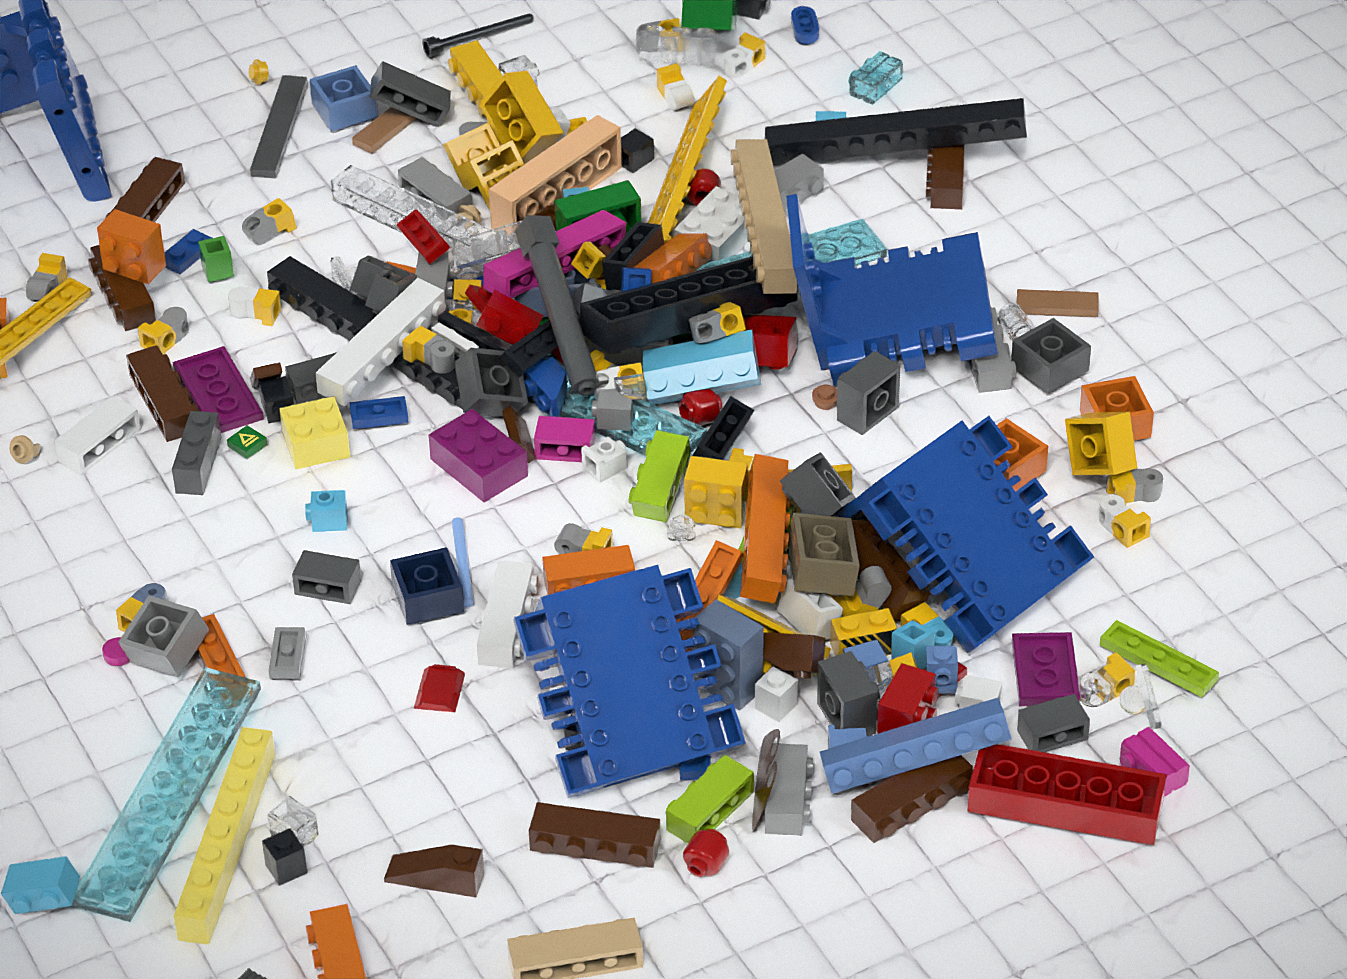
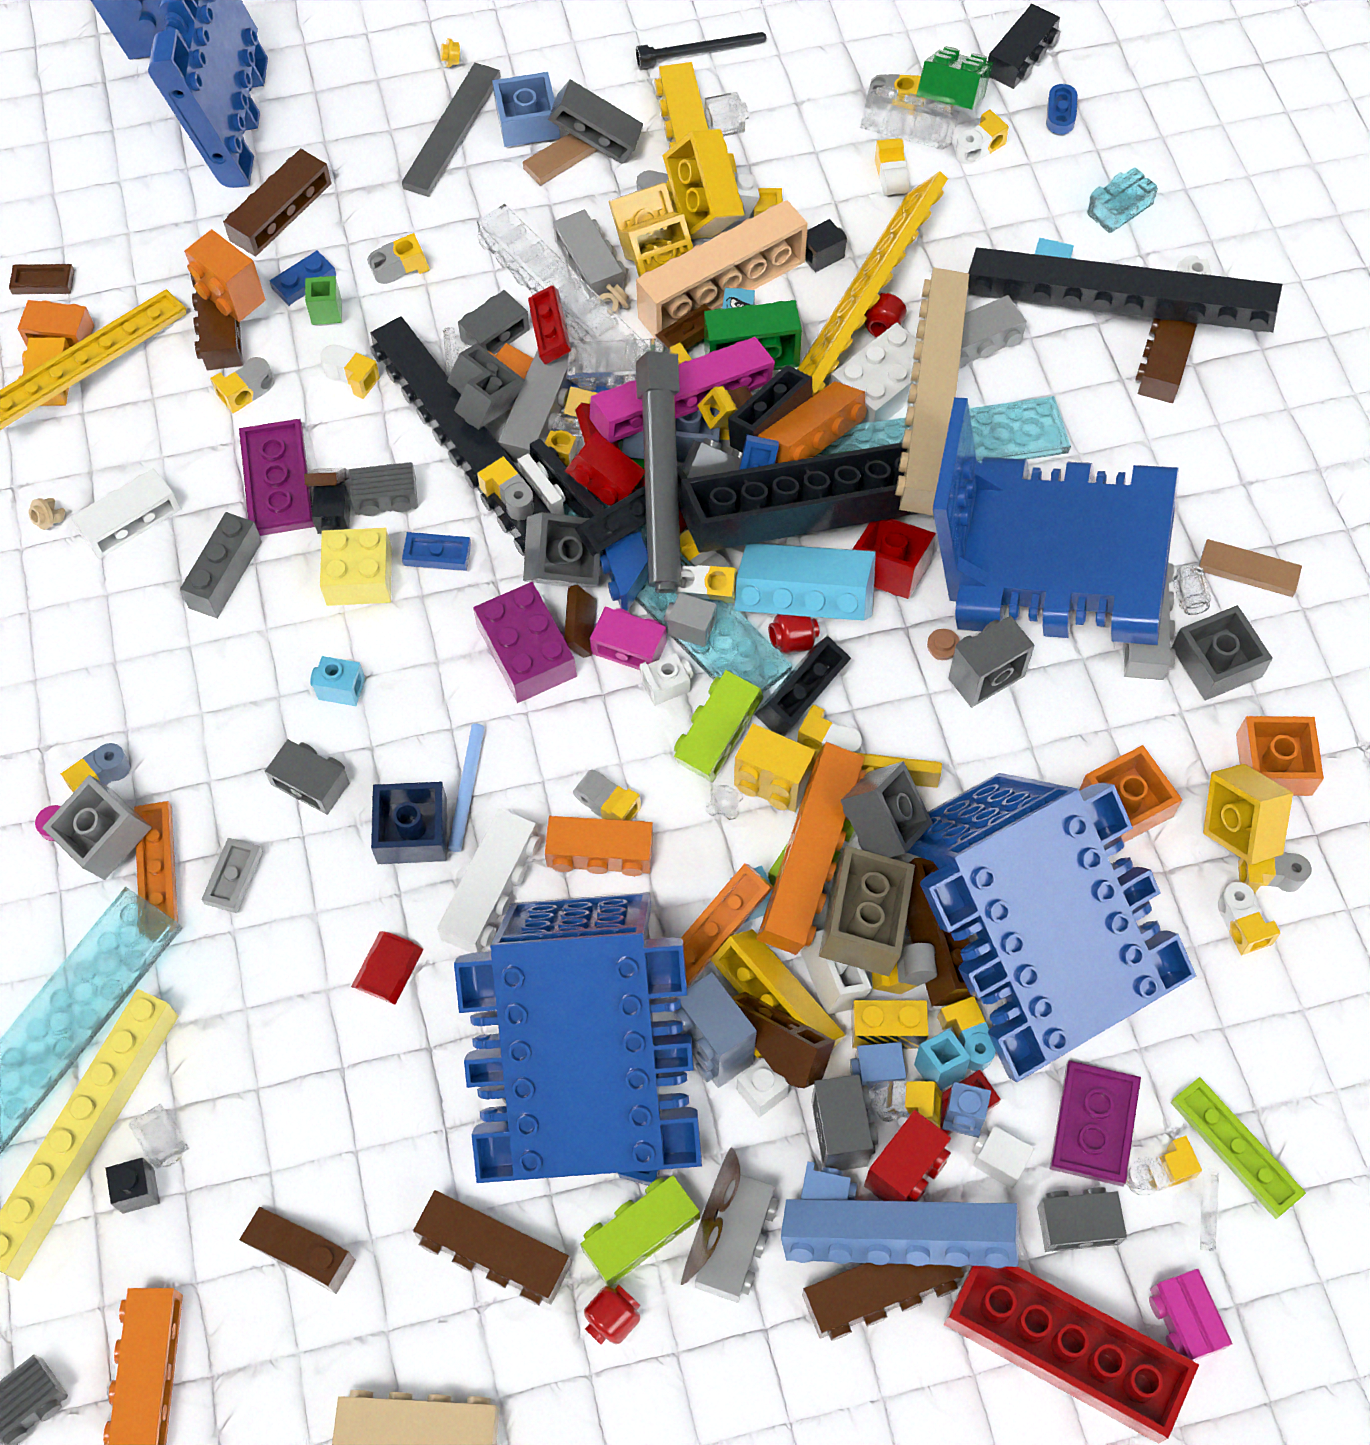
camera: 15 degrees right, 20 degrees up
(47, 276) = (142, 284): leg -> none
(161, 390) = (212, 468): reddish brown brick -> none
(247, 441) = (284, 557): green tile -> none
(373, 241) = (494, 323): none -> dark grey brick
(379, 342) = (455, 465): white brick -> none
(631, 386) = (715, 600): clear tile -> none
(717, 323) = (836, 535): leg -> none

